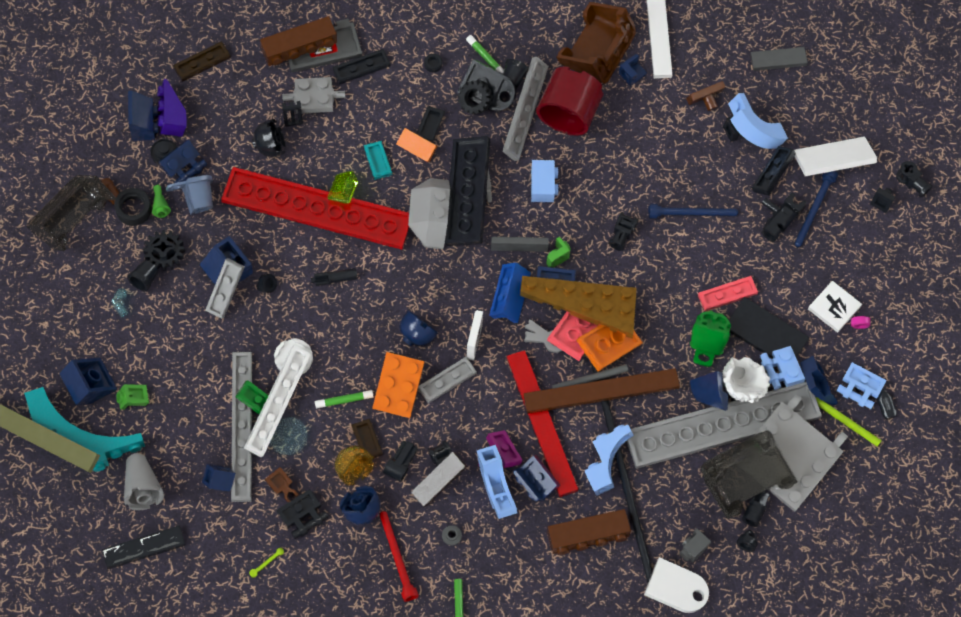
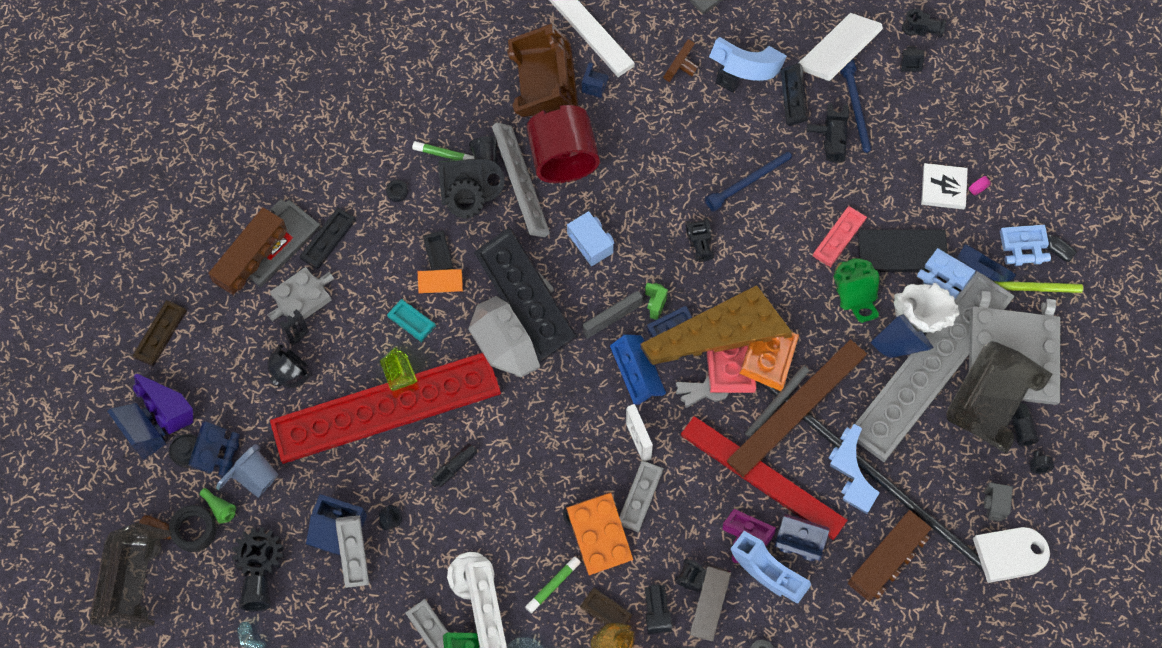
camera: 30 degrees left, 0 degrees up
(415, 330) = (576, 466): dark blue cylinder -> none

